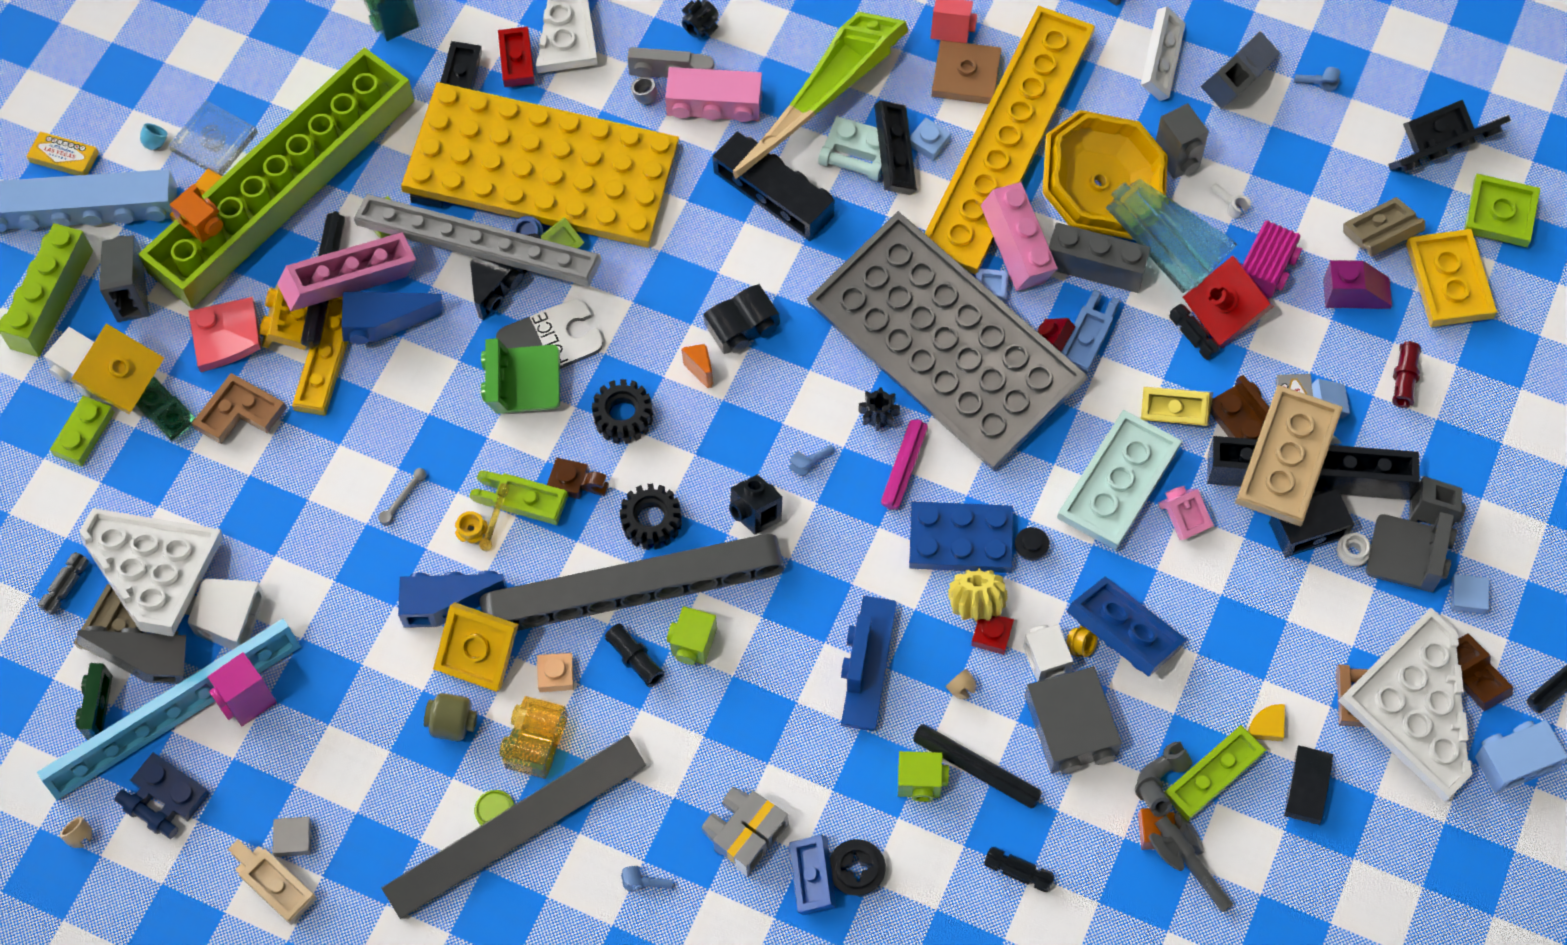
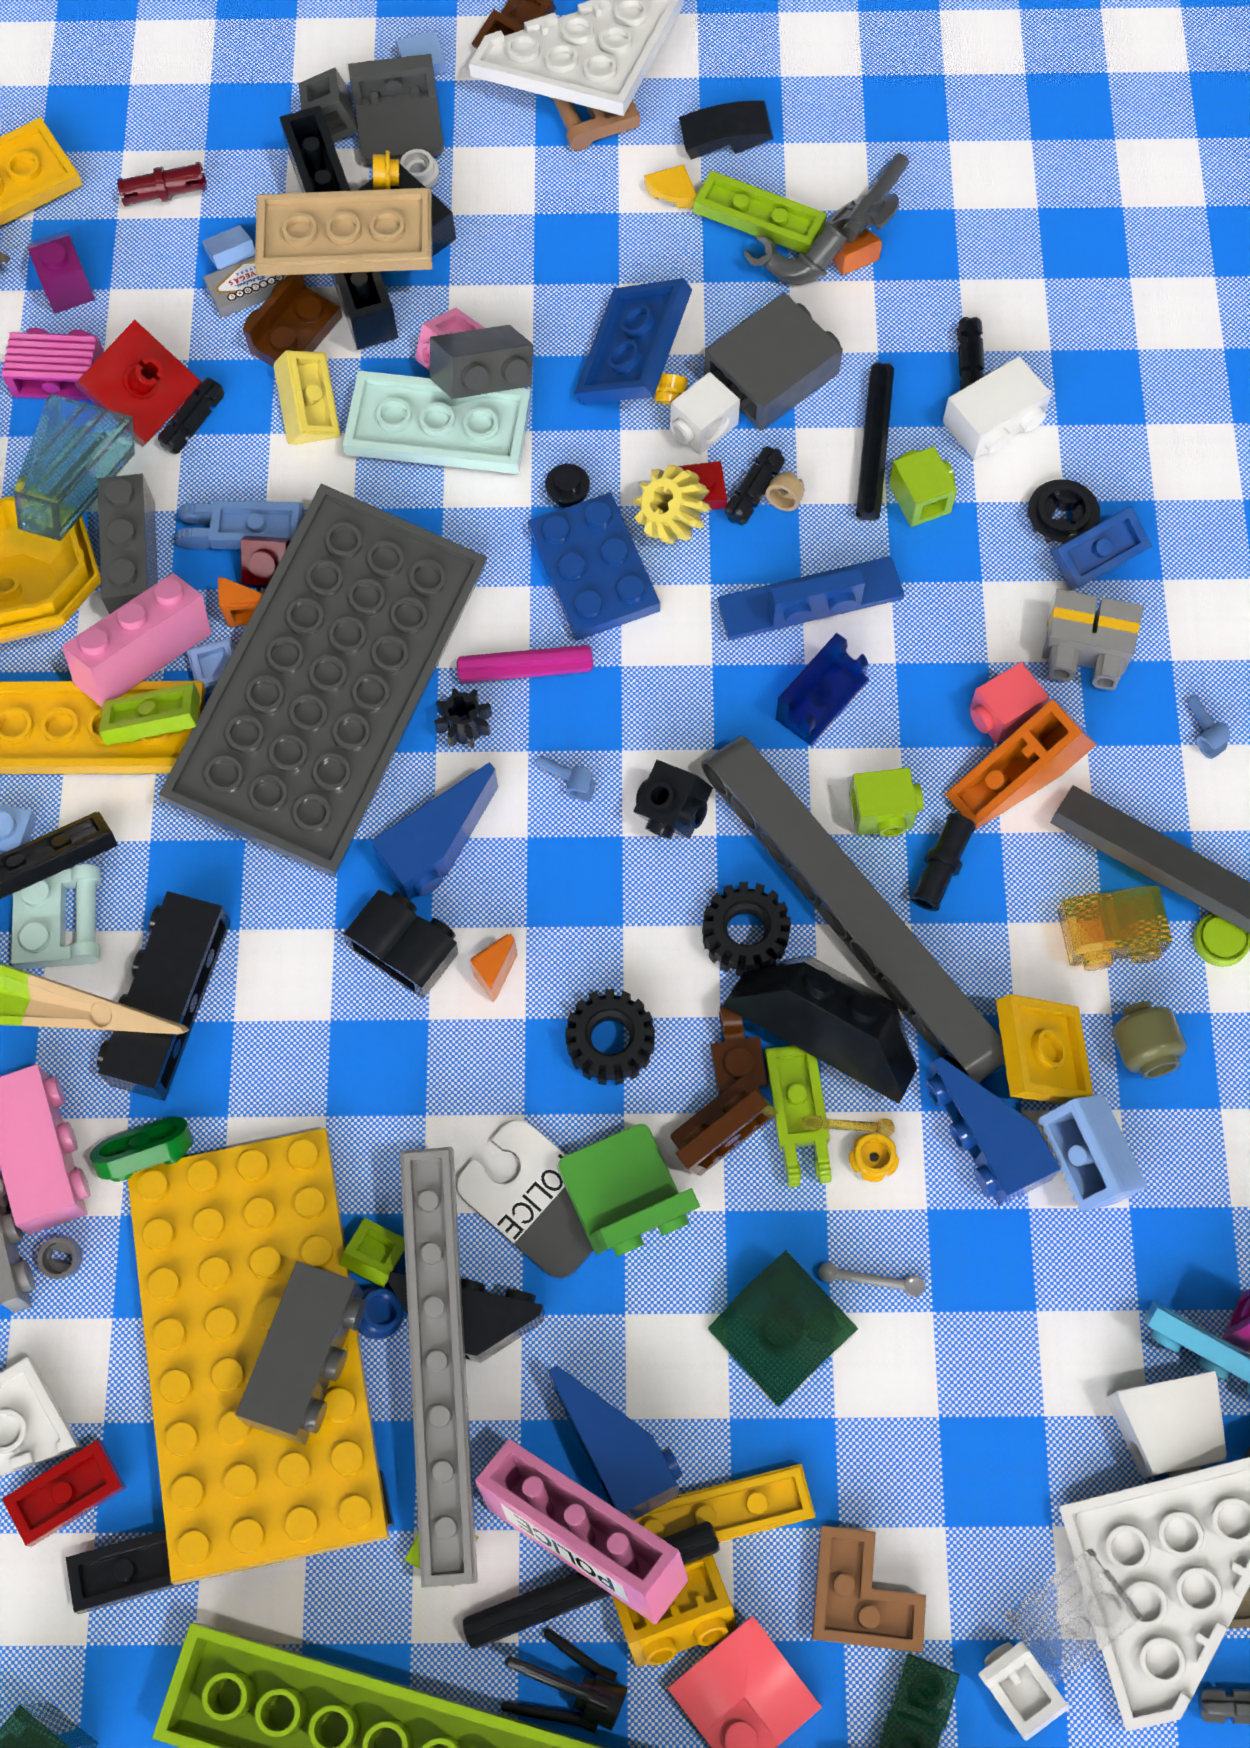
camera: 115 degrees left, 5 degrees up
(144, 466) = (1022, 1688): none -> white bracket
(160, 504) = (1073, 1616): none -> clear plate
(267, 260) = (597, 1698): none -> black plant
(399, 644) = (1092, 1152): none -> light blue brick
(400, 435) = (782, 1328): none -> clear green slope
(515, 171) = (302, 1354): none -> dark grey brick
(532, 443) = (722, 1125): none -> reddish brown bracket
(555, 672) = (1012, 951): light nougat plate -> none
(565, 536) = (830, 1020): none -> black wedge
(674, 737) = (1021, 764): none -> orange slope
(686, 146) = (141, 1148): none -> green plate
(724, 748) = (1007, 702): none -> coral brick
(793, 636) = (822, 690): none -> clear blue hinge
(802, 362) = (429, 840): none -> blue slope
(958, 224) = (149, 714): none -> lime plate
(961, 859) = (997, 408): none -> white brick
(976, 666) = (754, 485): none -> black axle
(1029, 305) = (237, 602): none -> orange slope
(1147, 513) = (481, 361): none -> dark grey brick
(1338, 504) = (385, 171): none -> yellow plate

